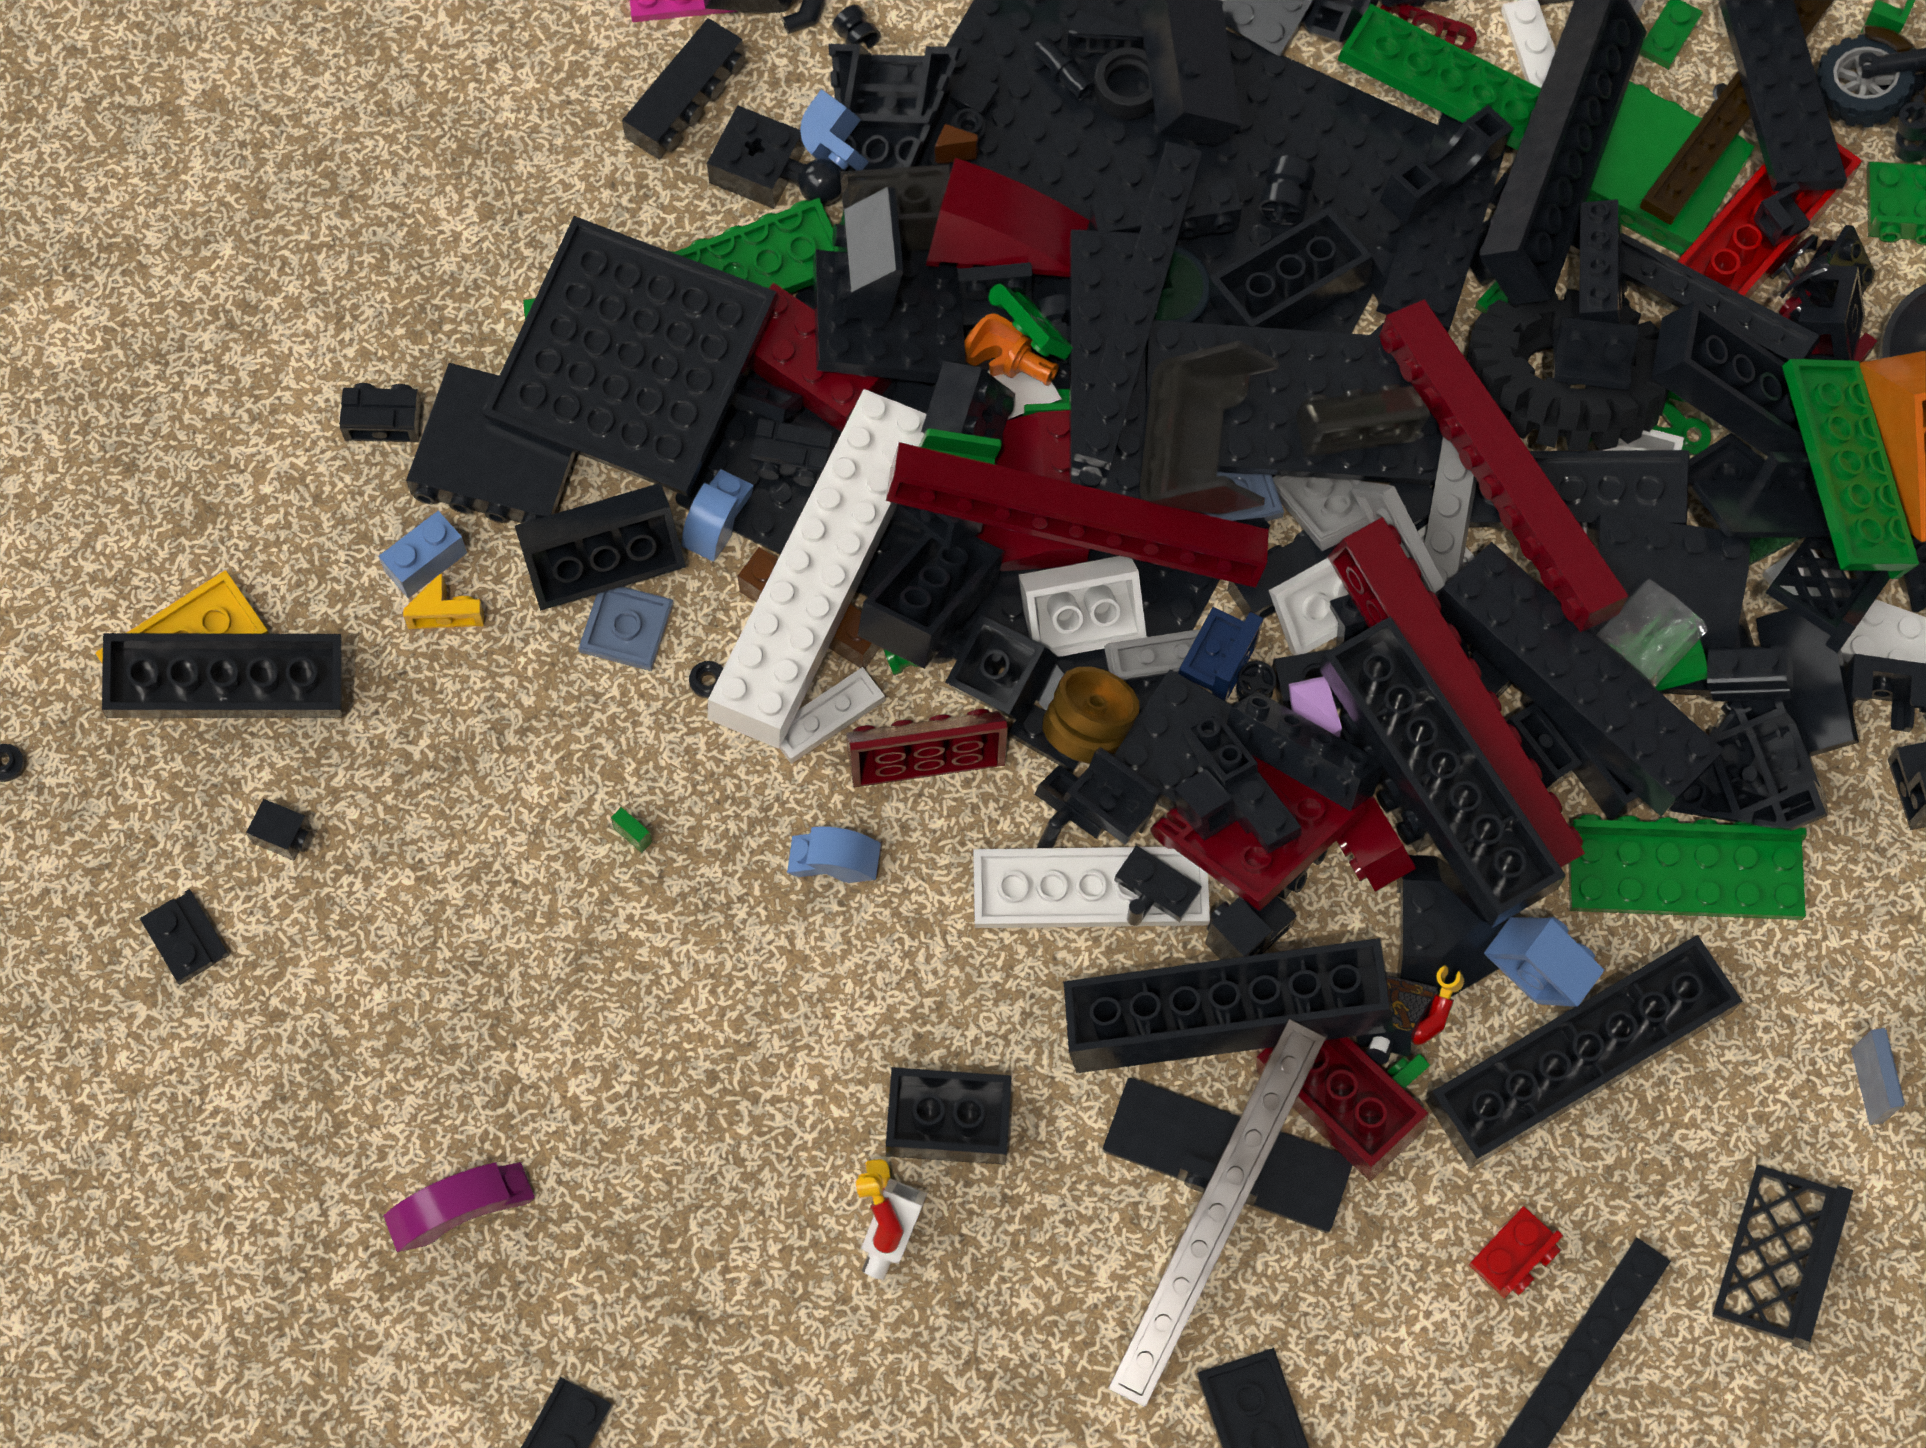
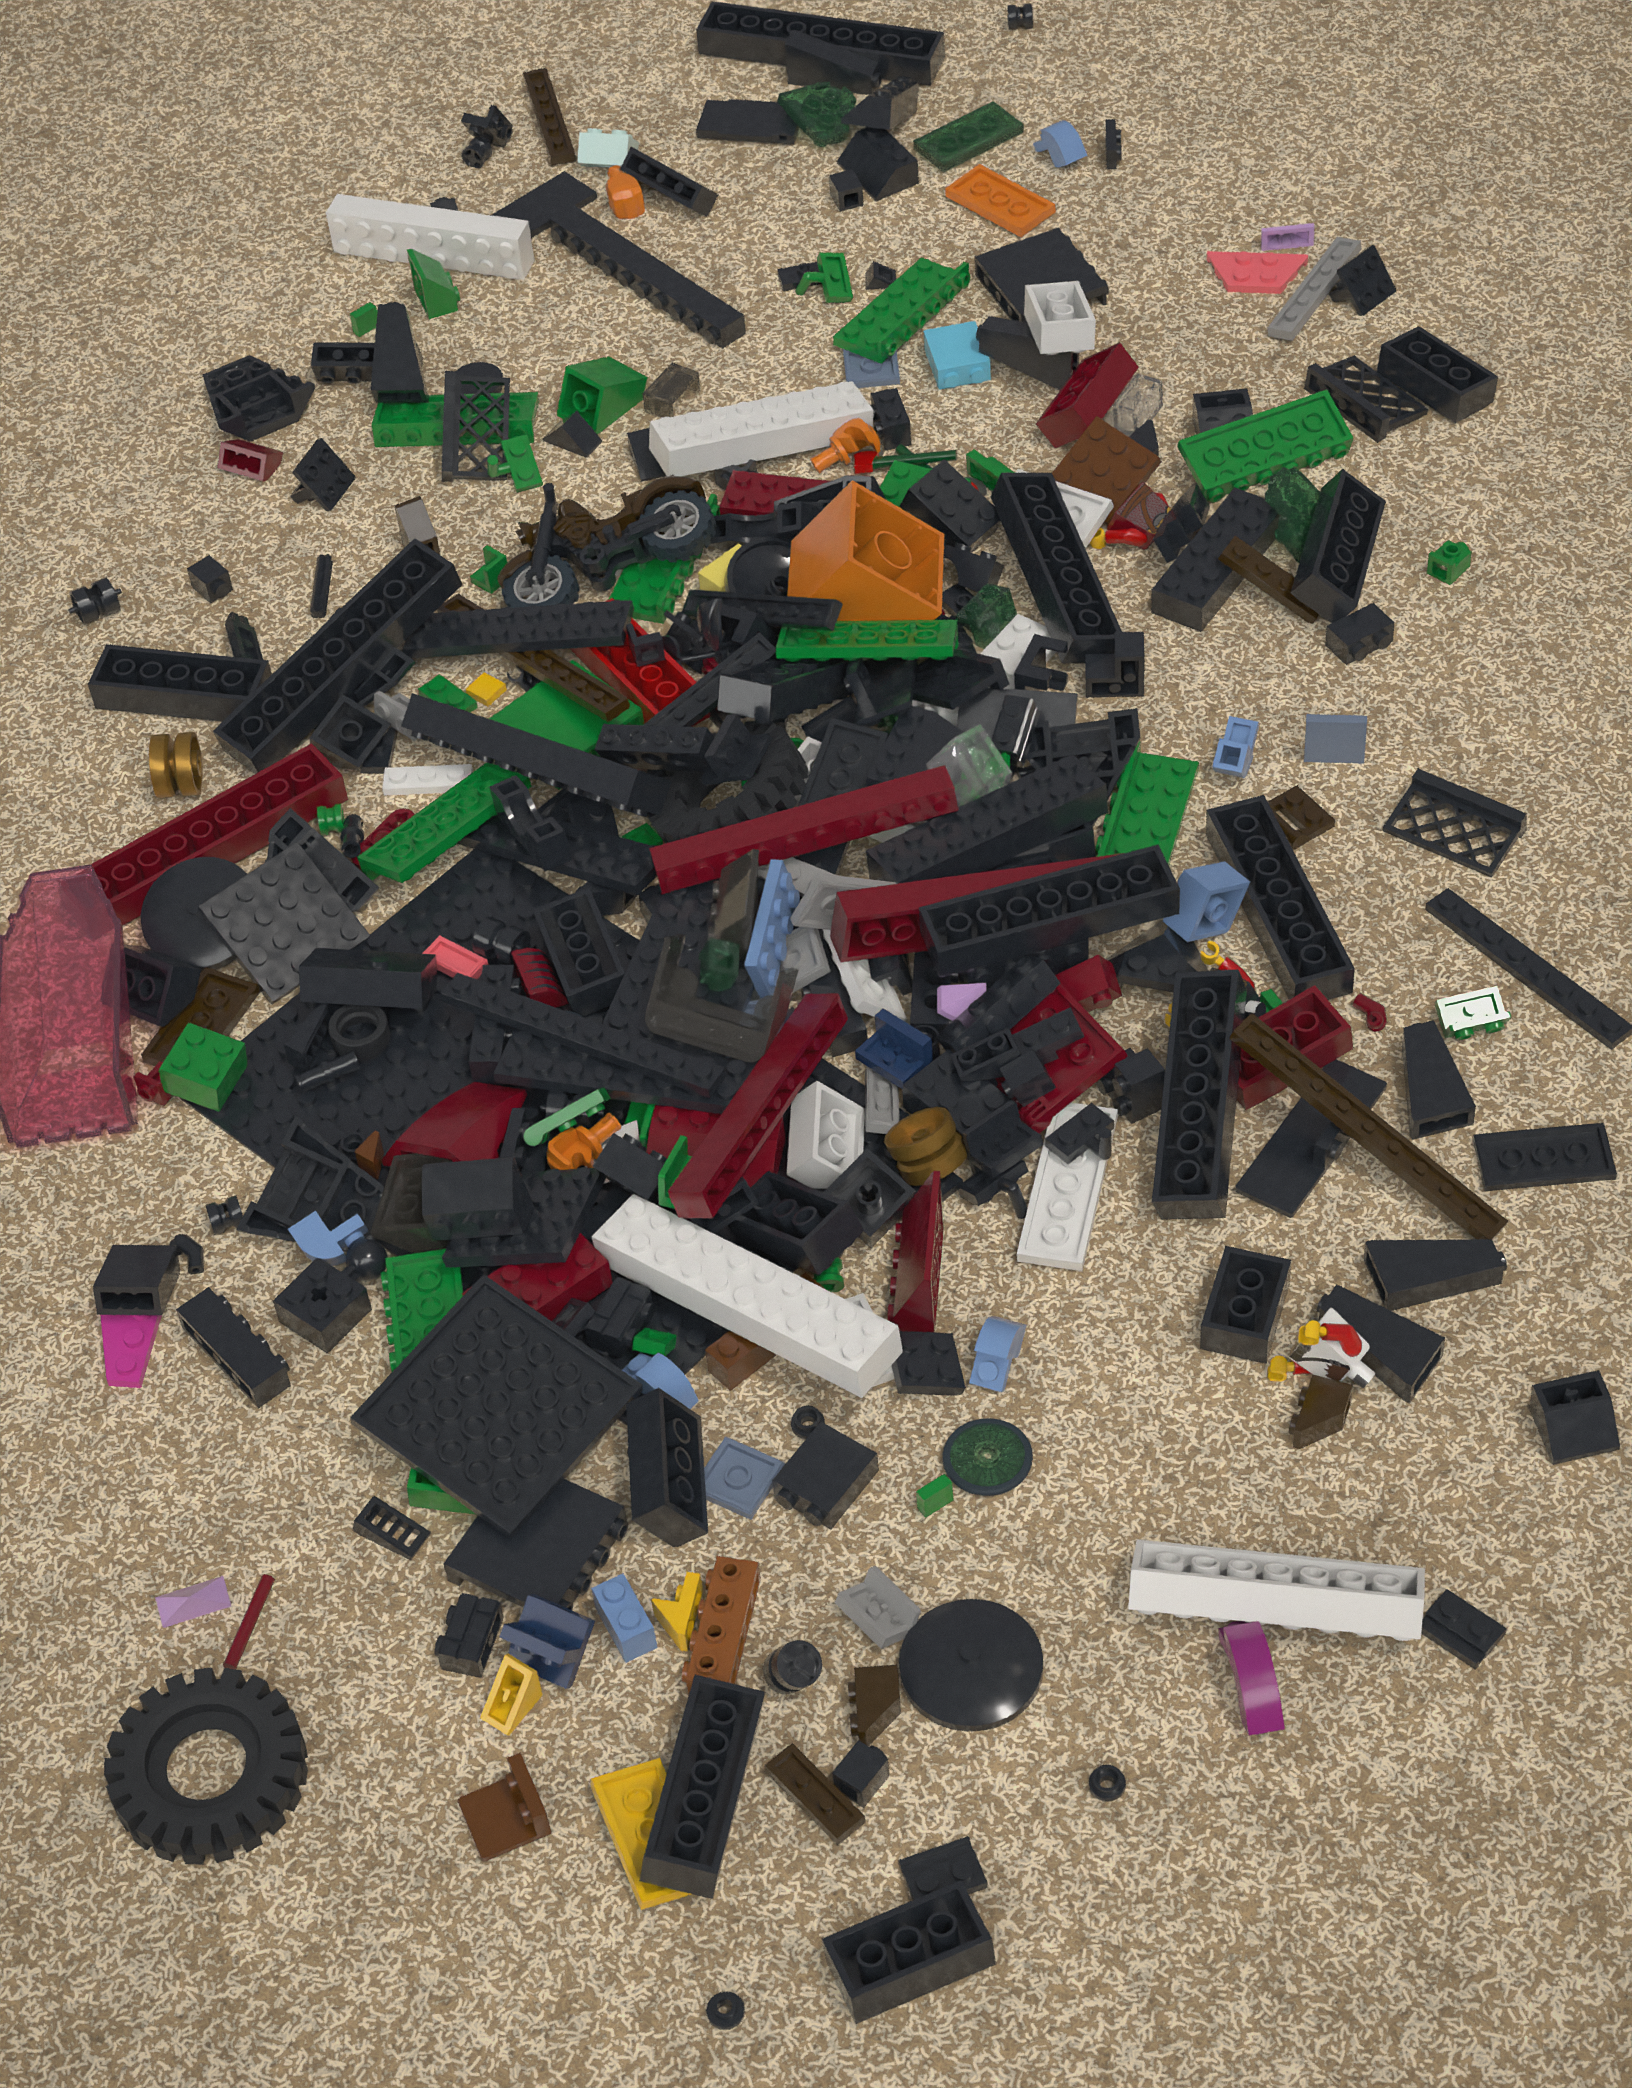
camera: 70 degrees left, 20 degrees down
(79, 919) = (909, 1951): none -> black brick
(187, 503) = (505, 1812): none -> reddish brown bracket
(204, 276) = (215, 1825): none -> black tyre
(258, 781) = (815, 1794): none -> dark brown plate
(312, 1068) = (1104, 1773): none -> black plate
(318, 473) = (512, 1695): none -> yellow slope
(365, 825) = (876, 1700): none -> dark brown slope
(370, 207) = (248, 1622): none -> dark red bar
(375, 484) = (549, 1639): none -> dark blue bracket
(383, 731) = (792, 1667): none -> black wheel
(386, 150) = (193, 1601): none -> lavender slope
(429, 653) = (723, 1620): none -> dark orange brick
(434, 913) = (971, 1665): none -> black dish
(477, 803) = (879, 1608): none -> light grey bracket
(507, 277) = (377, 1507): none -> black slope
(559, 1215) = (1277, 1589): none -> white brick
(635, 711) = (825, 1476): none -> black brick
(688, 898) = (975, 1474): none -> clear green wheel
(767, 495) = (654, 1342): none -> green tile
(803, 782) = (928, 1365): none -> black plate
(823, 1228) = (1322, 1410): none -> dark brown slope
(931, 1287) = (1399, 1348): none -> black slope
(1049, 1319) = (1431, 1270): none -> black slope
(1242, 237) = (538, 977): none -> dark red brick
(1257, 150) = (455, 959): none -> coral tile
(1284, 421) = (716, 969): none -> clear green brick
(1335, 1285) = (1433, 1084): none -> black slope
(1339, 466) = (770, 928): none -> medium blue plate
(1442, 1201) = (1375, 1012): none -> dark red arm
(1462, 1320) = (1472, 1012): none -> bracket
(1515, 1252) = (1426, 973): red bracket -> none
(1696, 69) = (486, 689): none -> yellow tile
(1757, 1059) = (1303, 813): none -> dark brown plate
(1827, 959) = (1235, 751): none -> medium blue brick
(1871, 332) = (773, 609): none -> black tile

